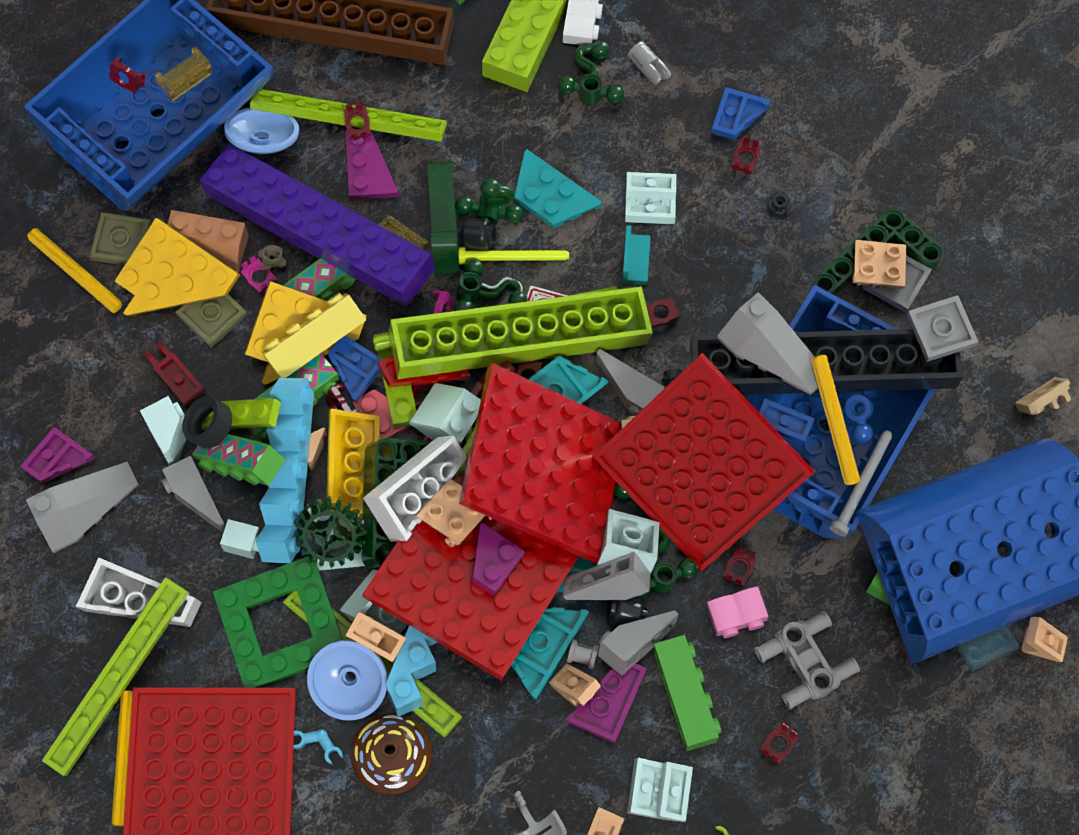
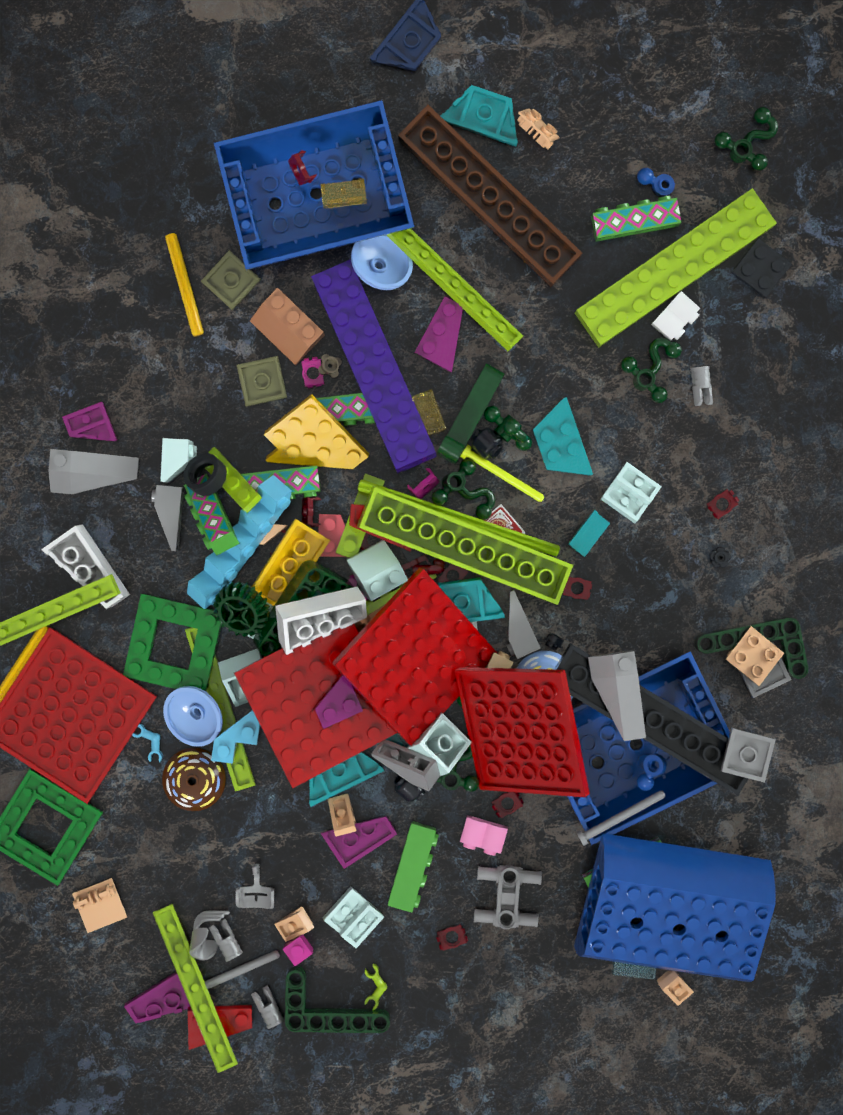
camera: 35 degrees right, 20 degrees up
(172, 272) = (250, 336): yellow wing -> none
(175, 375) = (208, 414): dark red hinge -> none
(240, 539) = (182, 567): light aqua brick -> none
(313, 336) = (318, 454): light yellow brick -> none
(350, 113) = (454, 310): dark red piece -> none
(354, 365) = (336, 490): blue wing -> none
(376, 636) = (228, 703): light nougat slope -> none
(448, 515) = (324, 651): light nougat hinge -> none
(582, 654) = (361, 795): light grey bush -> none
(634, 640) = (396, 812): light grey slope -> none
(737, 112) = (739, 466): blue wing -> none
(787, 421) = (597, 740): blue plate -> none
(835, 419) = (629, 768): yellow axle -> none
(1045, 394) = (801, 821): tan plate -> none

